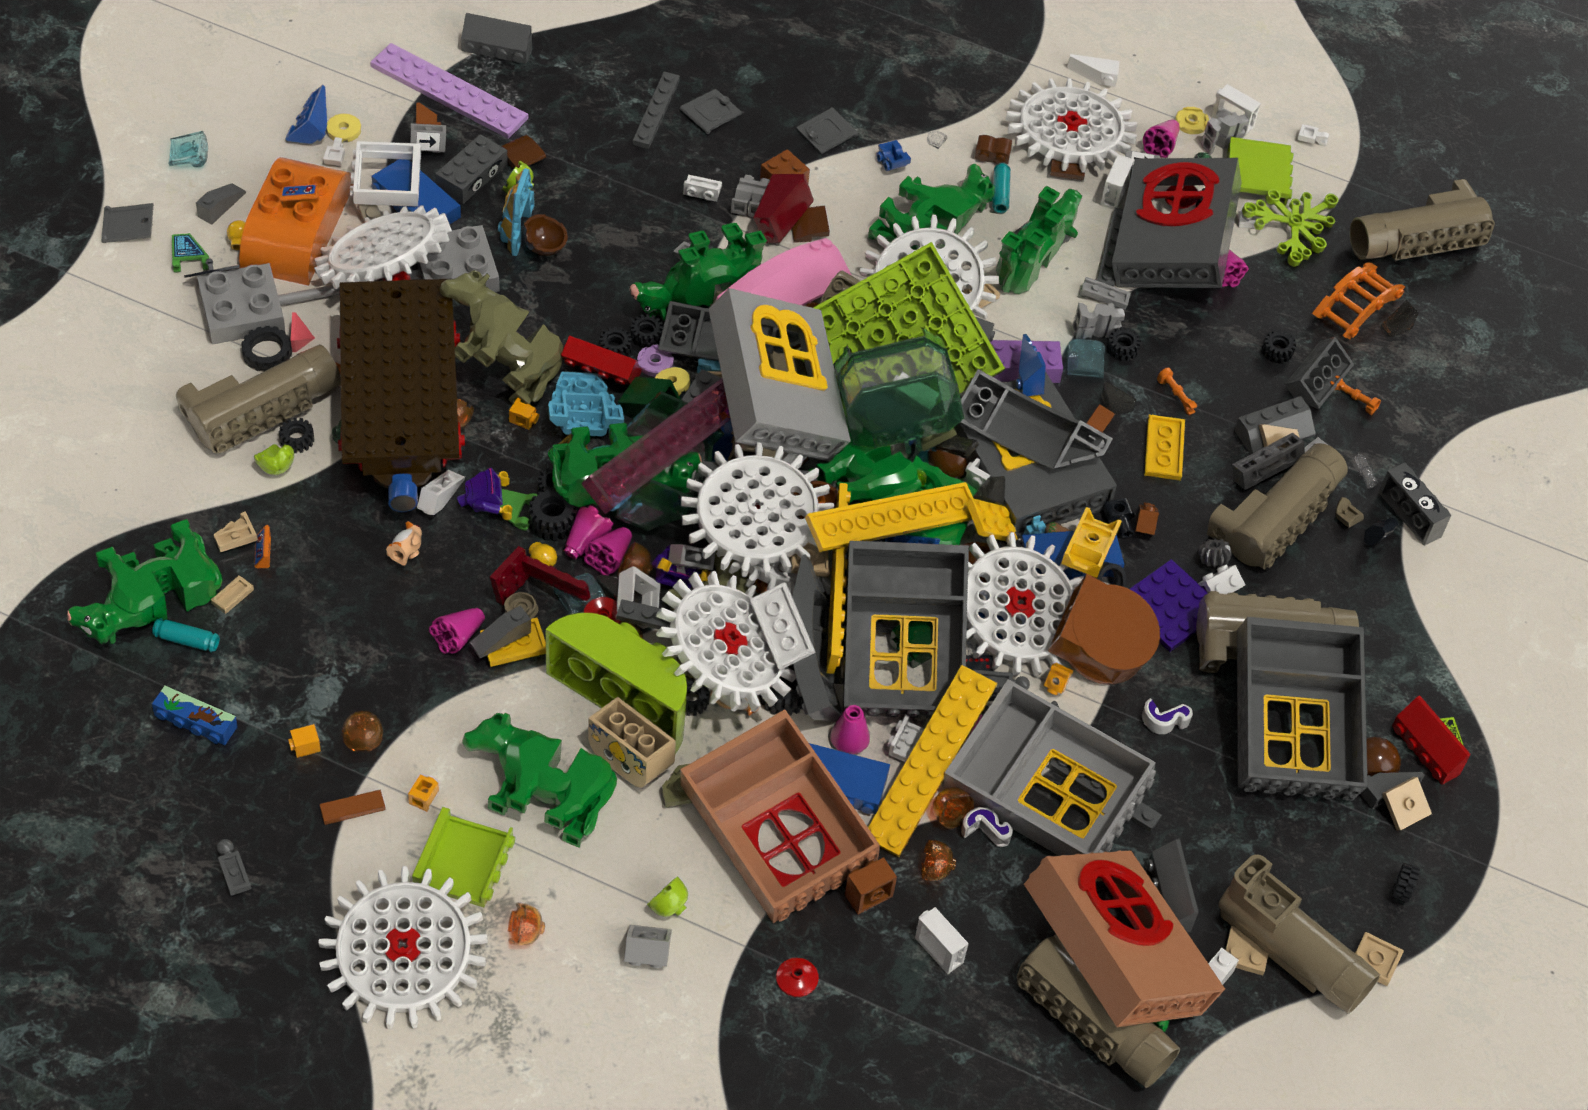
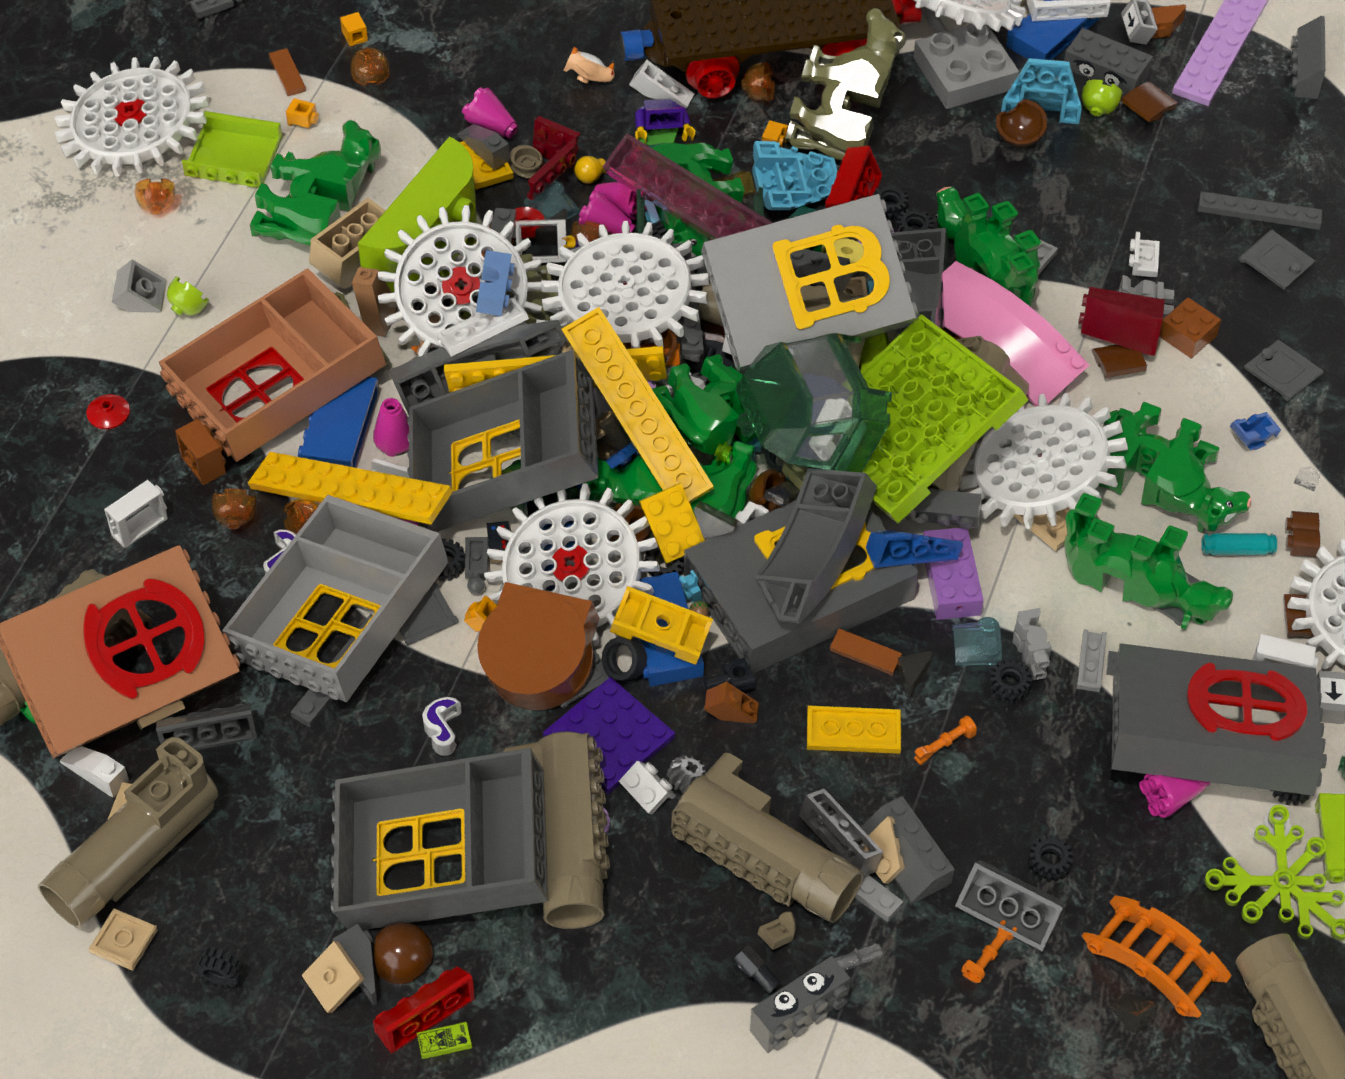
camera: 90 degrees right, 0 degrees up
(707, 728) = (366, 289): none -> medium nougat slope
(735, 596) = (492, 295): none -> medium blue arch

